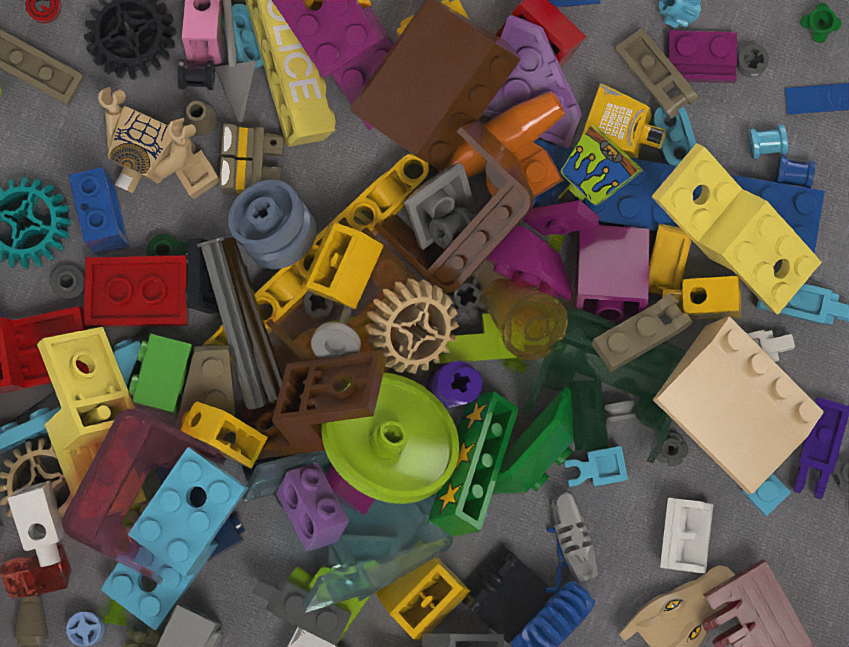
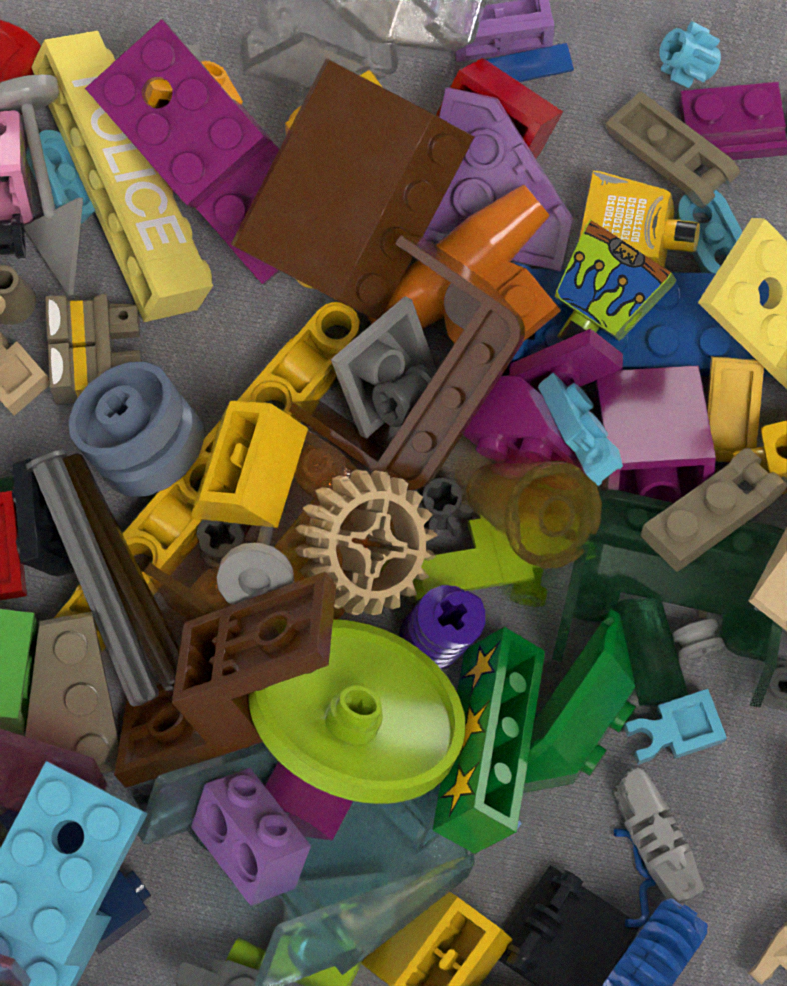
camera: 10 degrees left, 10 degrees down
(211, 426) = (89, 725): yellow torso -> none
(562, 267) = (581, 428): none -> medium azure hinge

